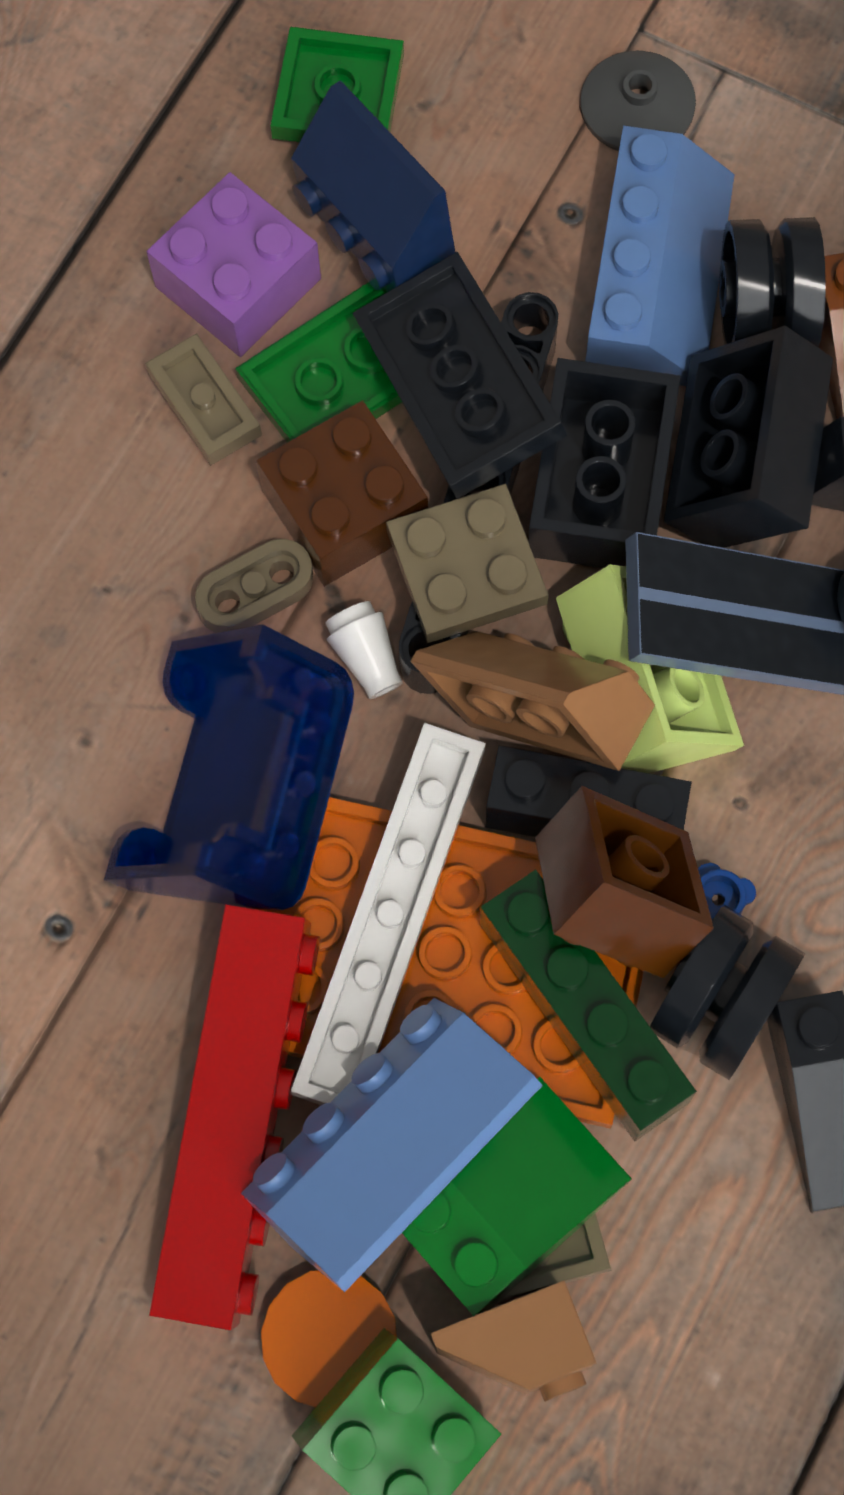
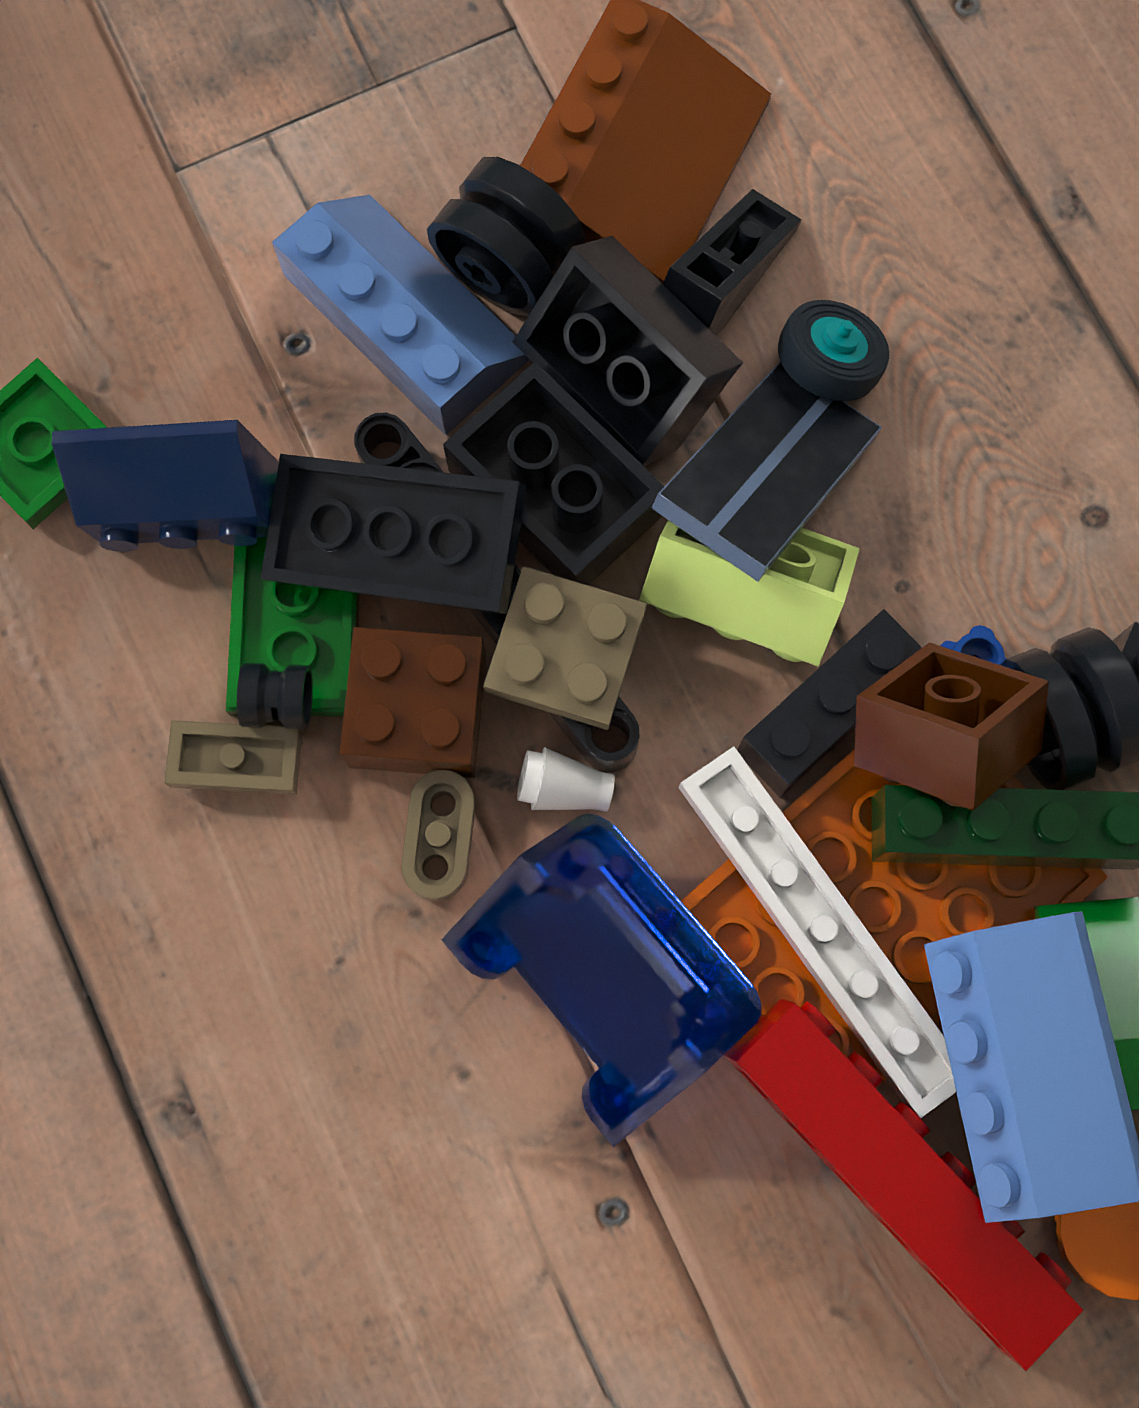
camera: 55 degrees left, 5 degrees up
(234, 264) = (131, 643): medium lavender brick -> none
(266, 384) = (274, 695): none -> black wheel
(540, 695) = (726, 670): medium nougat slope -> none
(610, 103) = (241, 241): dark grey dish -> none

